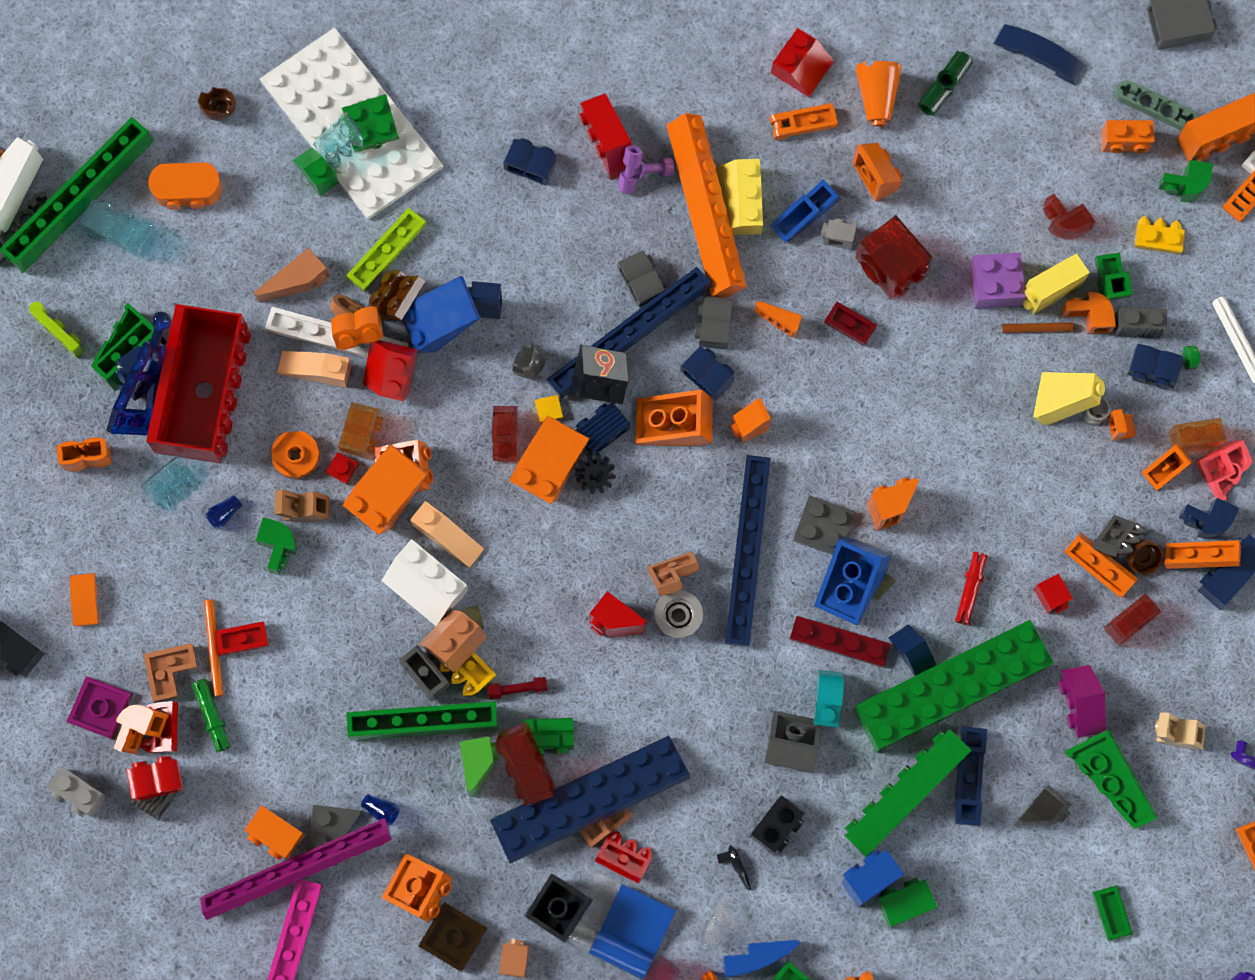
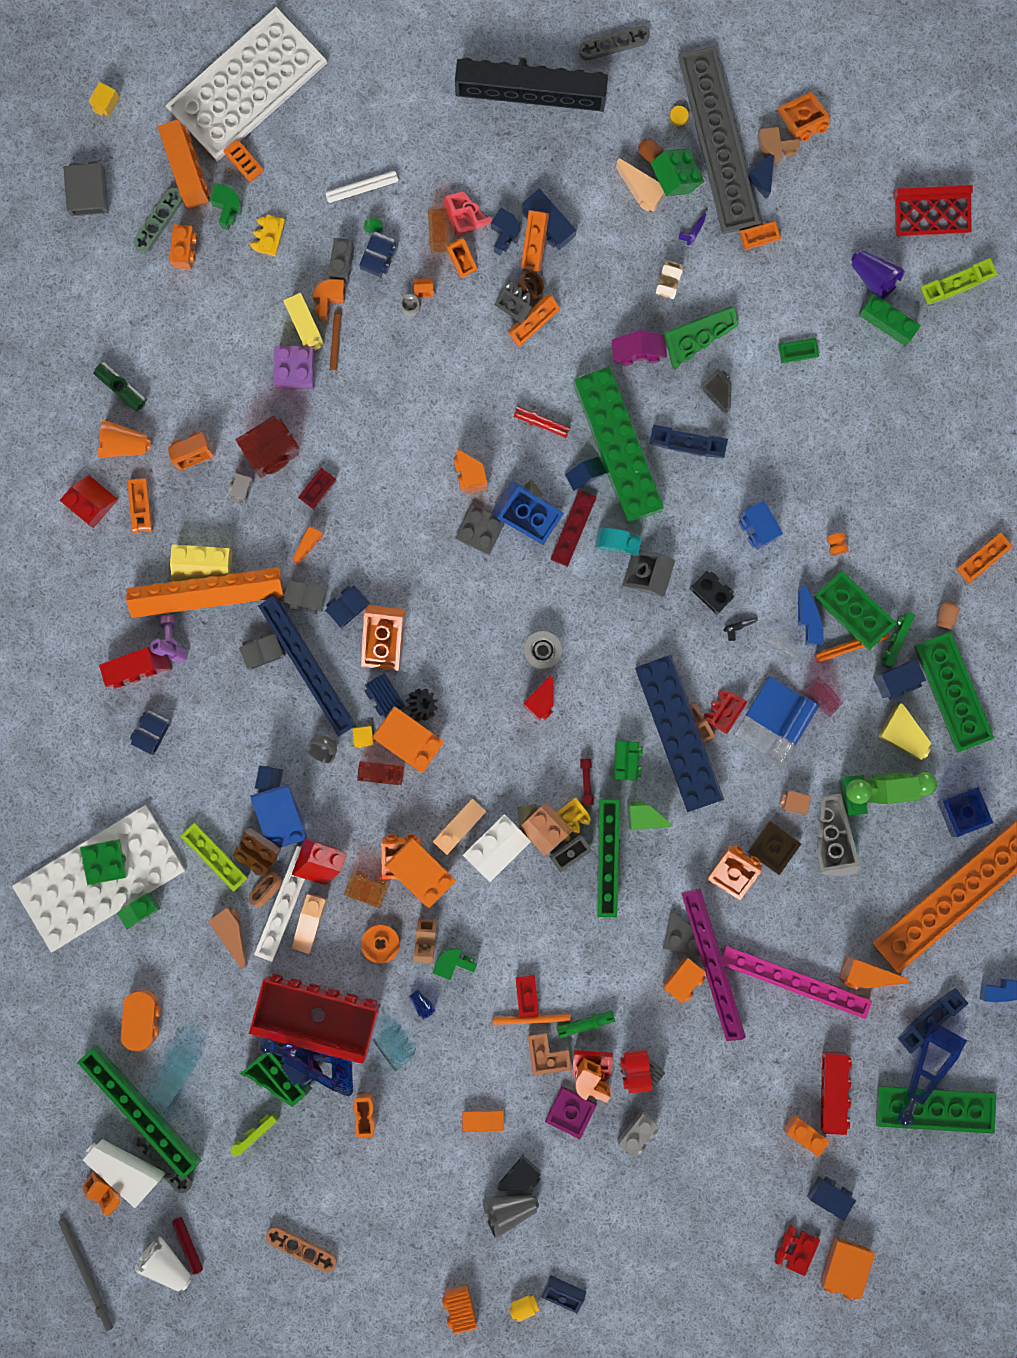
camera: 85 degrees left, 10 degrees up
(210, 100) = (63, 990): reddish brown hair -> none
(337, 140) = (117, 890): clear light blue plate -> none
(342, 468) = (395, 906): red plate -> none
(356, 328) = (283, 886): orange brick -> none
(380, 808) = (671, 895): clear blue cone -> none
(525, 764) = (650, 780): clear red brick -> none
(558, 908) = (762, 764): black slope -> none
(600, 374) = (342, 692): black slope -> none
(666, 573) = (506, 655): nougat plate -> none
(747, 551) = (494, 591): dark blue plate -> none
(751, 421) = (392, 577): orange slope -> none
(805, 211) = (218, 513): blue slope -> none
(906, 902) = (779, 500): green brick -> none
(907, 793) = (697, 490): green brick -> none
(1041, 51) = (100, 306): dark blue slope -> none
(1053, 594) = (553, 359): red brick -> none
(1066, 395) = (396, 326): light yellow slope -> none
(1067, 224) = (252, 306): clear red brick -> none
(1112, 281) = (303, 277): green brick -> none
(1132, 619) = (579, 302): clear red brick -> none

